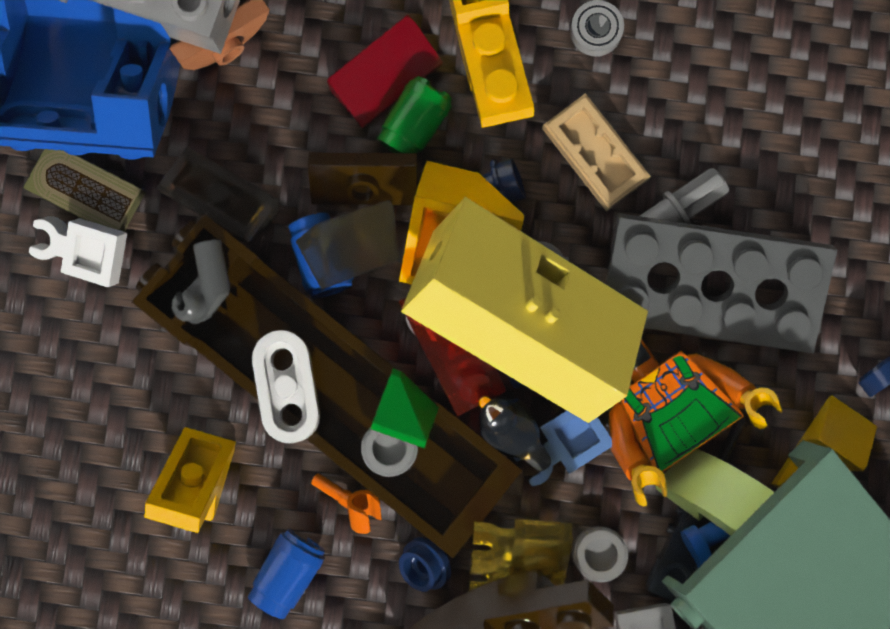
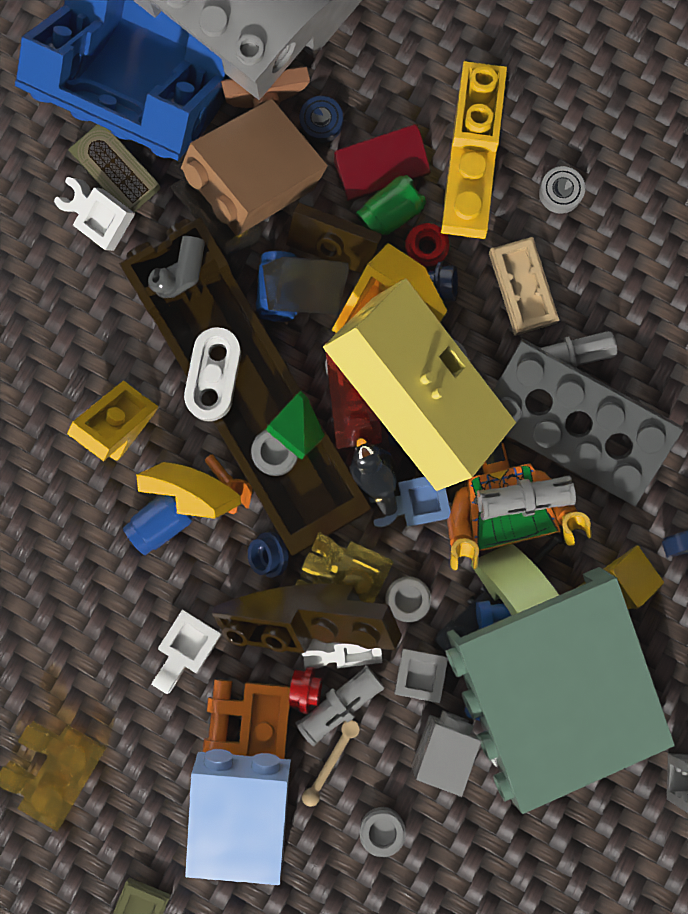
camera: 20 degrees right, 0 degrees up
(241, 131) = (253, 166): none -> medium nougat brick
(297, 48) = (321, 119): none -> dark blue tile
(314, 525) = (194, 490): none -> yellow slope
(470, 130) = (429, 232): none -> red plate
(693, 393) = (526, 497): none -> light grey pin

